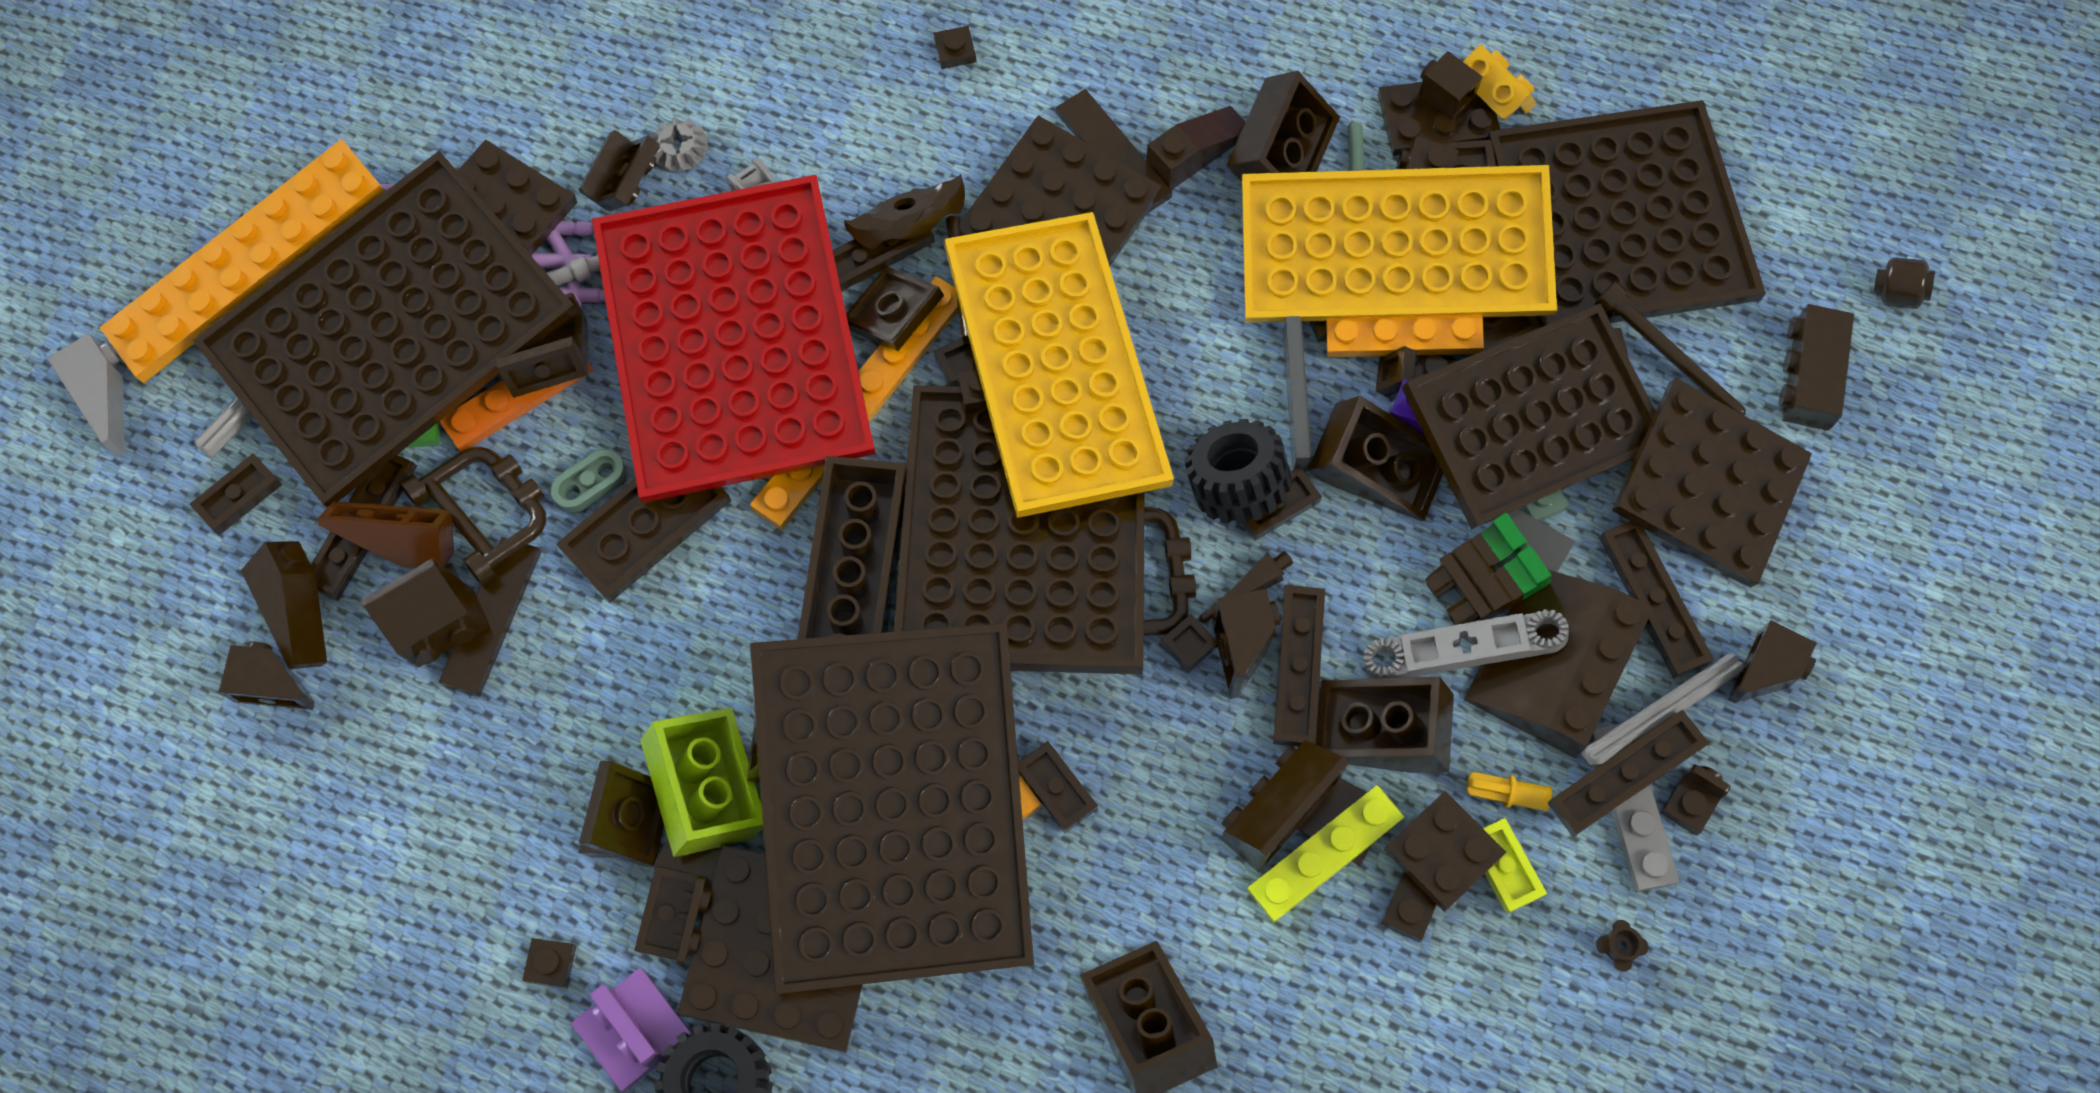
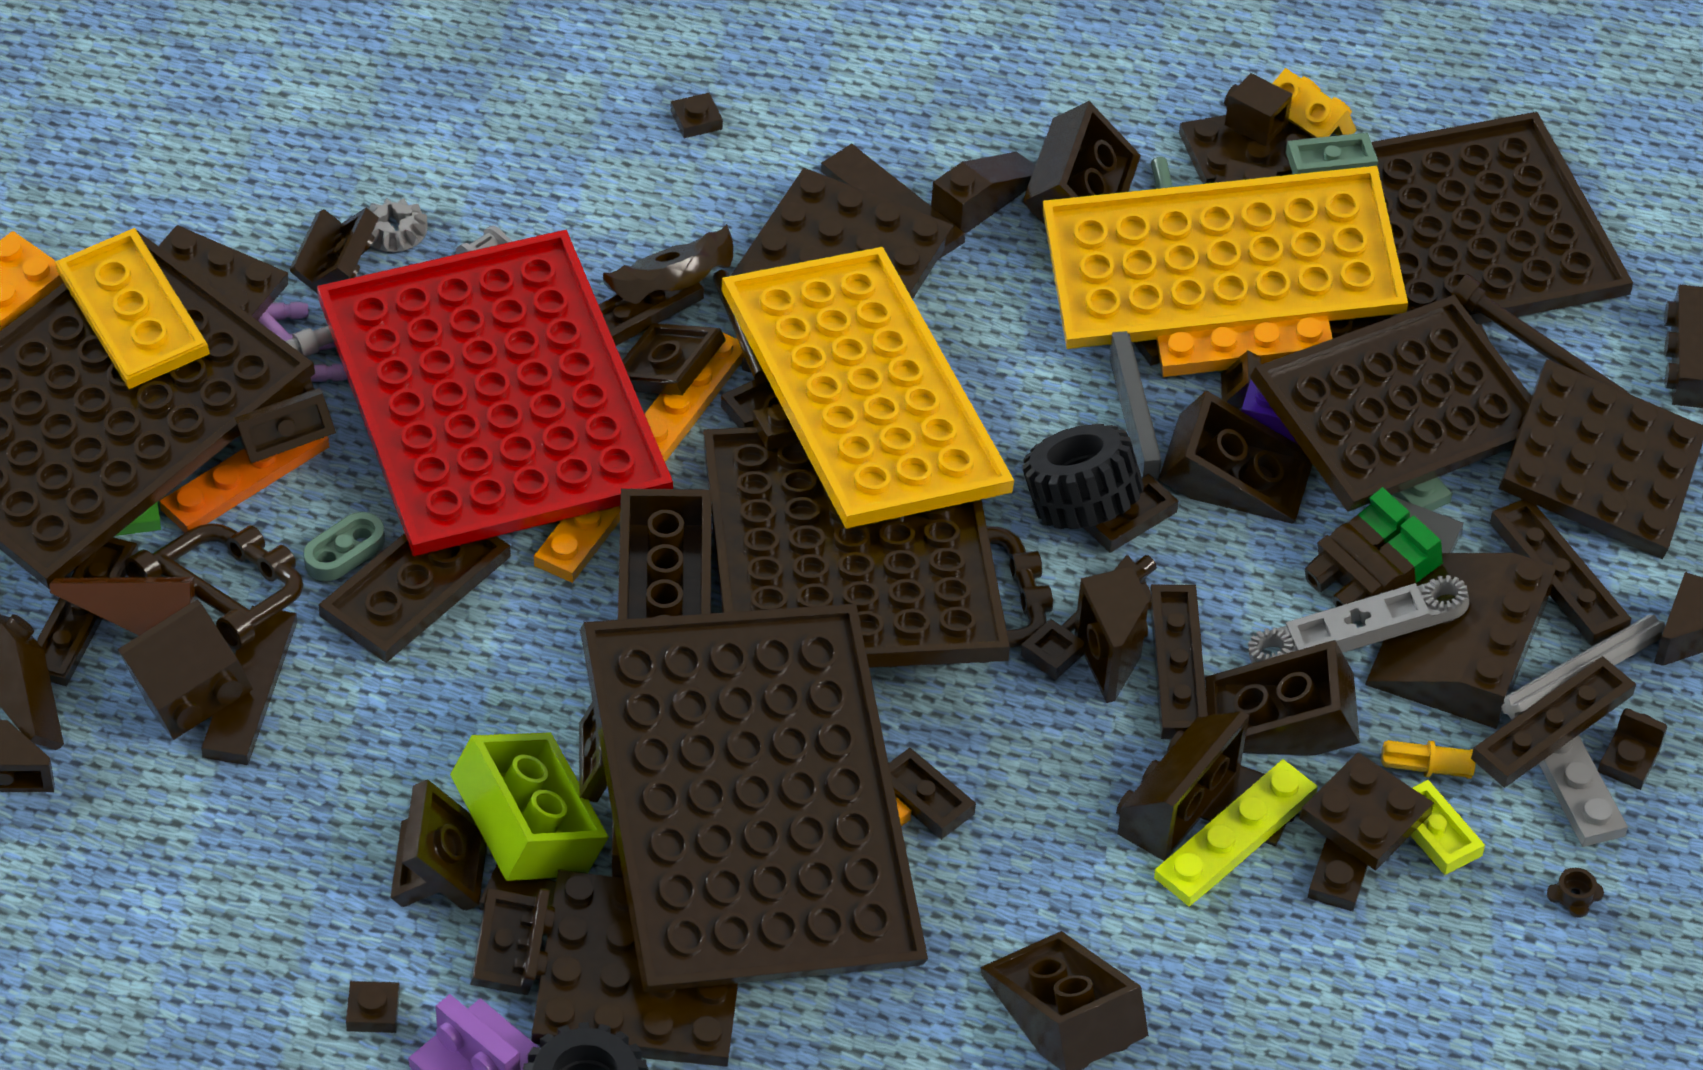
camera: 10 degrees left, 20 degrees down
(425, 235) = (132, 308): none -> yellow tile
(1509, 140) = (1331, 153): none -> sand green plate

